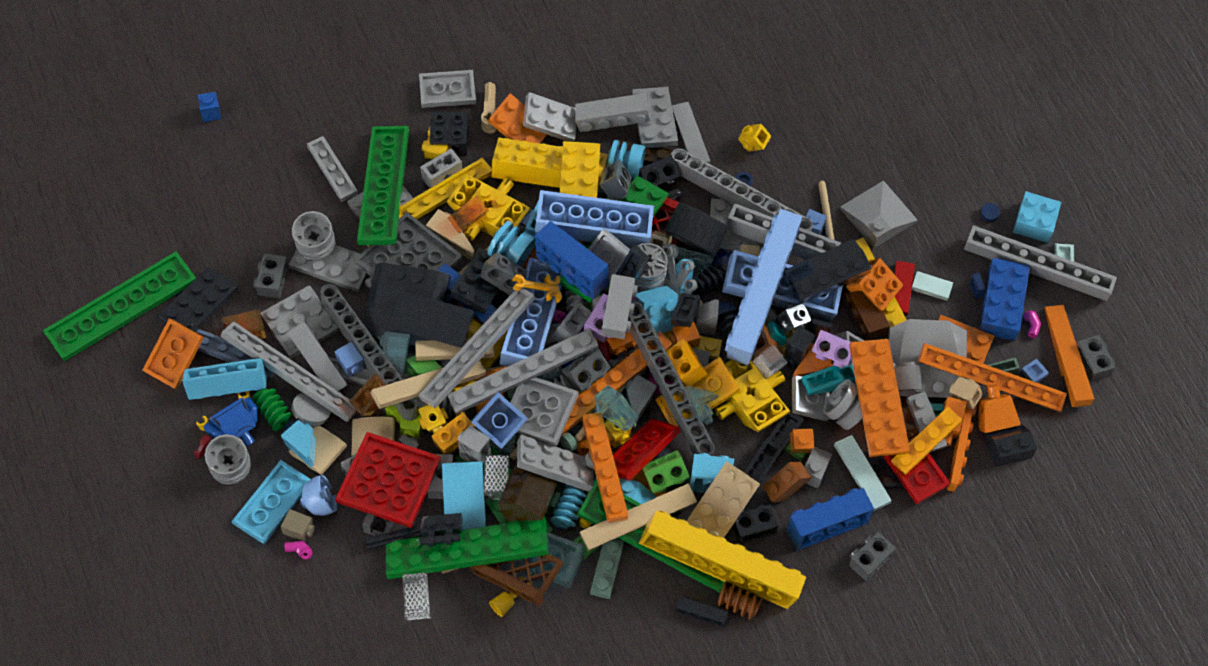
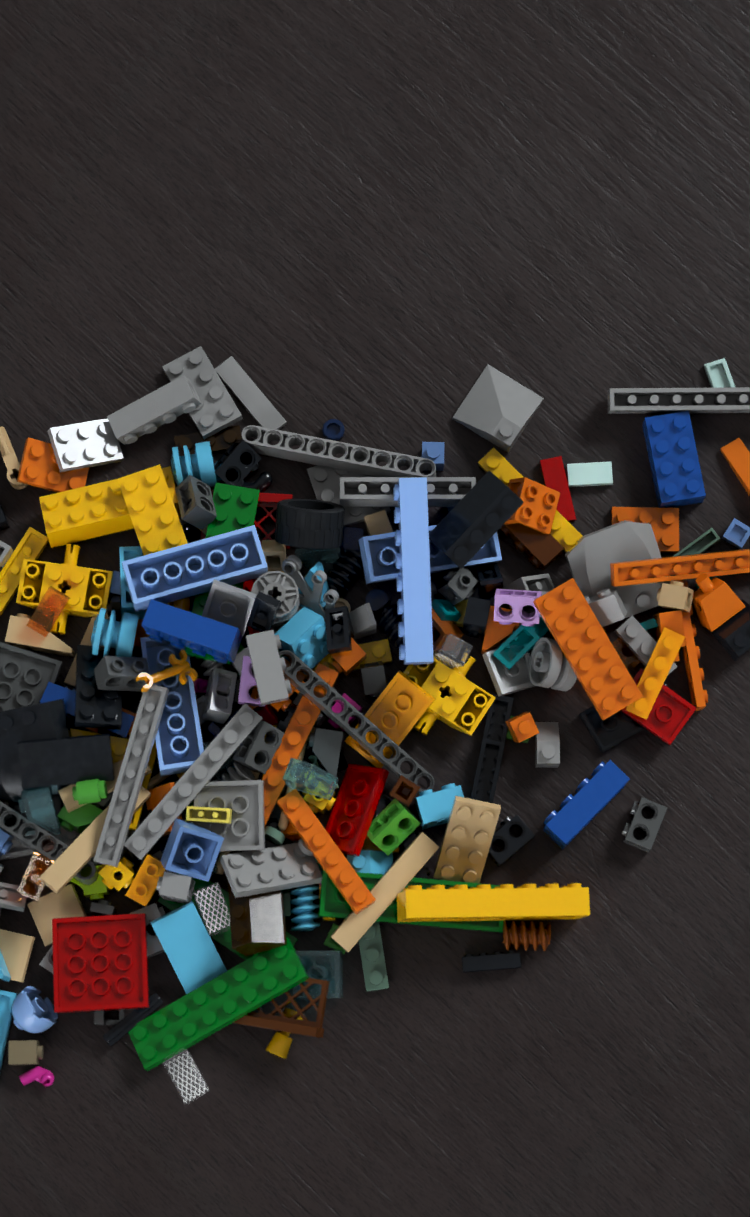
camera: 20 degrees left, 15 degrees up
(439, 347) = (90, 791): none -> bright green brick
(441, 529) = (179, 990): black plate -> none
(524, 399) = (208, 815): none -> light yellow piece
(686, 363) = (365, 688): light orange brick -> none
(687, 446) = (404, 791): none -> reddish brown slope
(699, 399) = (394, 727): clear light blue slope -> none
(754, 137) = (325, 373): yellow brick -> none
(786, 482) = (524, 782): dark orange brick -> none
(826, 210) = (462, 472): tan piece -> none
(862, 472) = (599, 733): light aqua tile -> none
(977, 286) = (638, 455): dark blue tile -> none
(990, 212) = (619, 355): dark blue tile -> none
(1032, 317) = (716, 472): dark pink arm -> none
(1037, 217) = (673, 342): medium azure brick -> none

